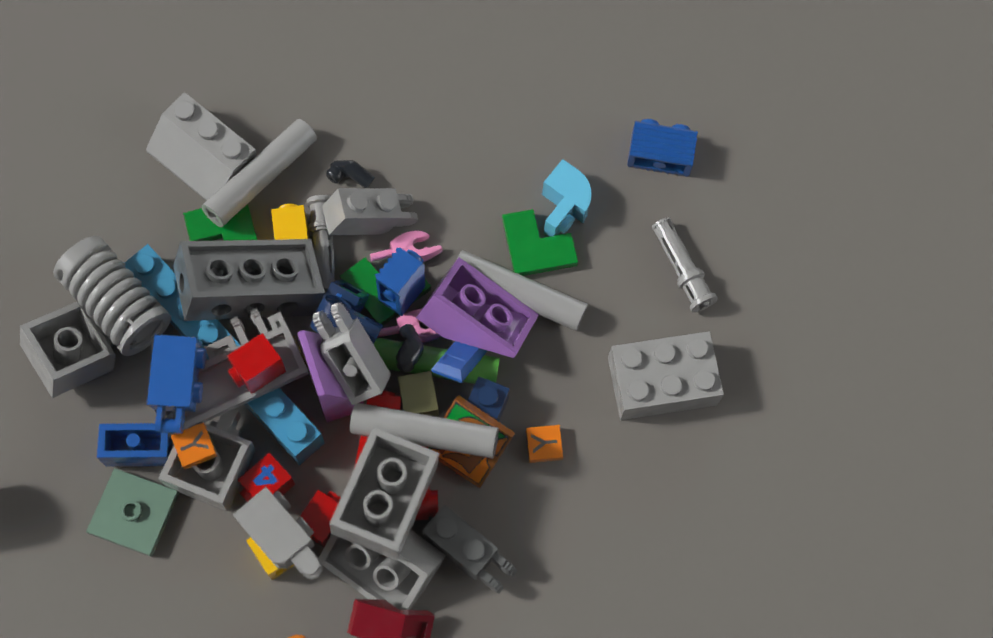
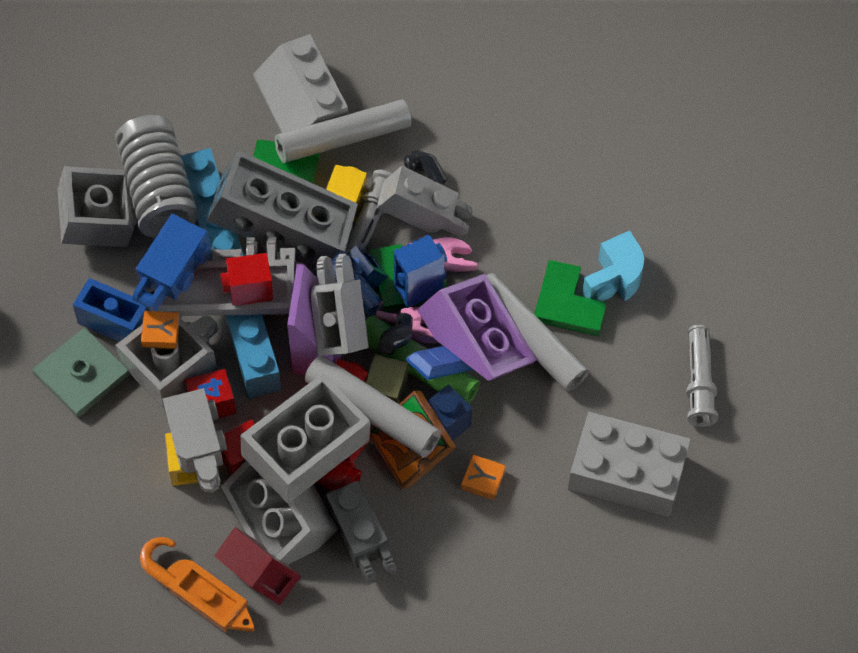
camera: 30 degrees right, 10 degrees down
(662, 147) = (734, 262): blue brick -> none

